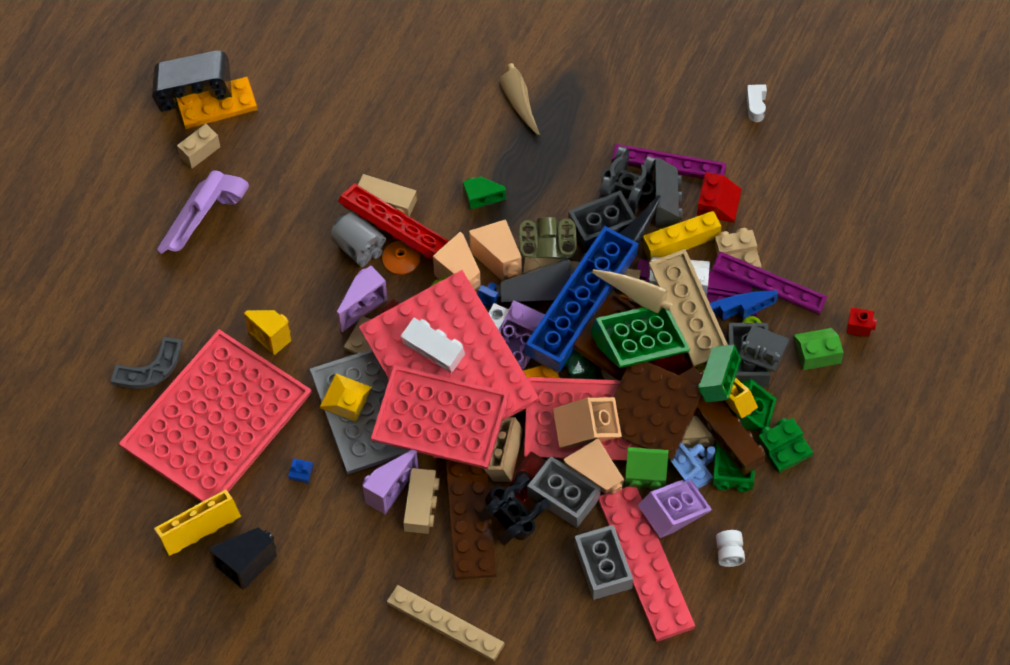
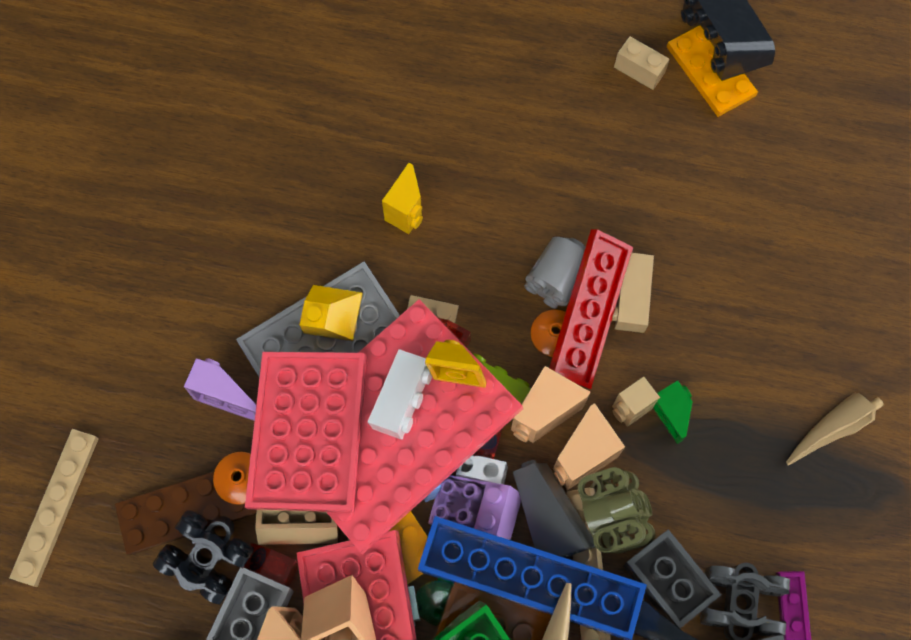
camera: 75 degrees right, 10 degrees up
(155, 372) = (331, 98): dark grey plate -> none
(197, 522) = (138, 189): yellow brick -> none
(215, 418) = (283, 177): coral plate -> none
(217, 186) = (585, 89): lavender panel -> none
(244, 556) = (95, 251): black slope -> none
(300, 470) = (233, 287): blue tile -> none
(363, 296) = (475, 295): lavender slope -> none
(421, 501) = (211, 437): tan brick -> none
(422, 299) = (454, 364): none -> yellow slope
(456, 488) = (225, 486): none -> orange dish
(471, 211) = (635, 402): none -> tan brick
(488, 294) = (522, 453): blue tile -> none

